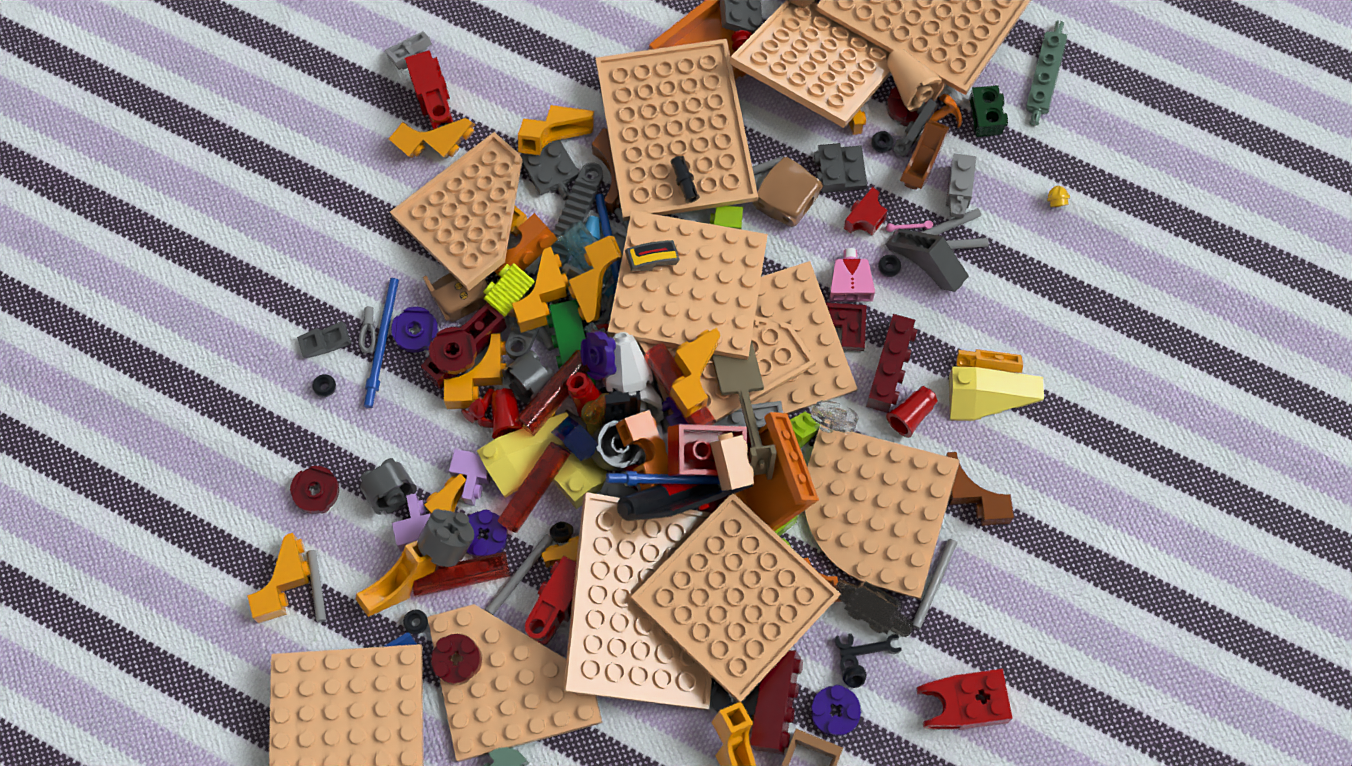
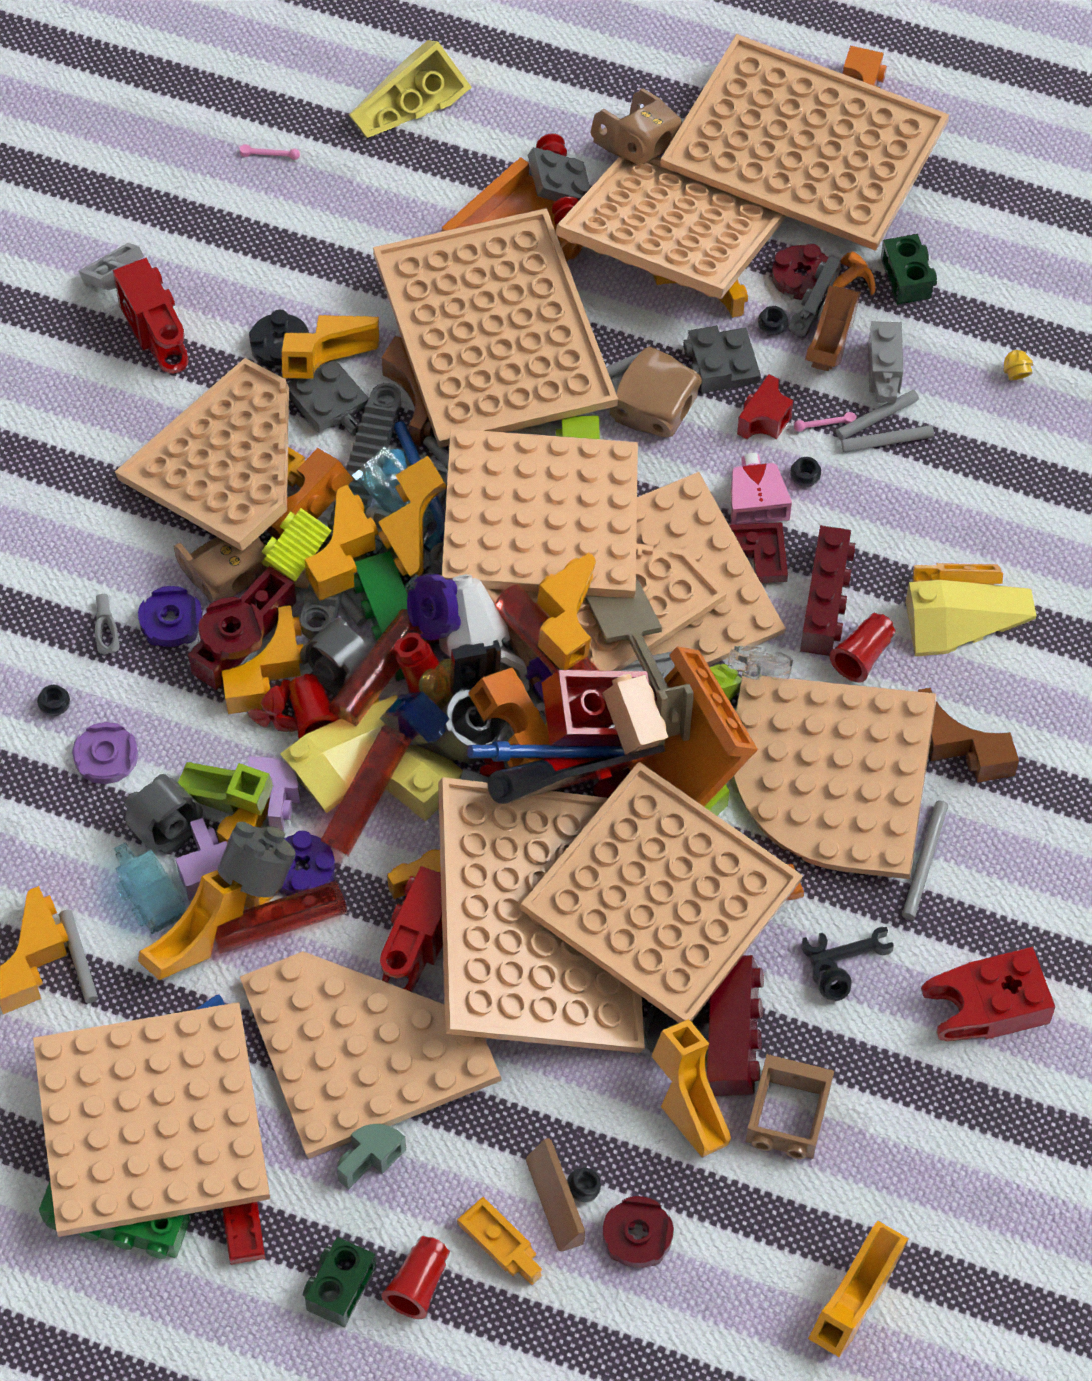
camera: 10 degrees left, 10 degrees down
(320, 501) = (65, 849): dark red plate -> none
(324, 341) = (40, 647): dark grey slope -> none
(355, 430) = (105, 753): none -> medium lavender tile
(371, 541) = (148, 888): none -> clear light blue hinge
(373, 383) = (121, 689): blue bar -> none
(415, 614) = (224, 976): black plate -> none
(434, 472) = (226, 788): none -> lime arch
(443, 139) = (176, 372): light orange arch -> none
(465, 669) = (275, 1007): dark red plate -> none
(516, 109) = (270, 328): none -> black plate
(519, 574) = (359, 909): light grey bar -> none
(561, 532) = (409, 848): black plate -> none
(648, 255) = (484, 476): slope -> none
(685, 179) = (516, 384): black pin -> none
(835, 725) = (816, 1014): dark purple plate -> none
(874, 607) = (850, 893): clear smoke hinge -> none
(913, 79) = (804, 235): light nougat cone -> none
(931, 255) = (861, 449): dark grey arch -> none
(1046, 73) = (979, 216): sand green plate -> none

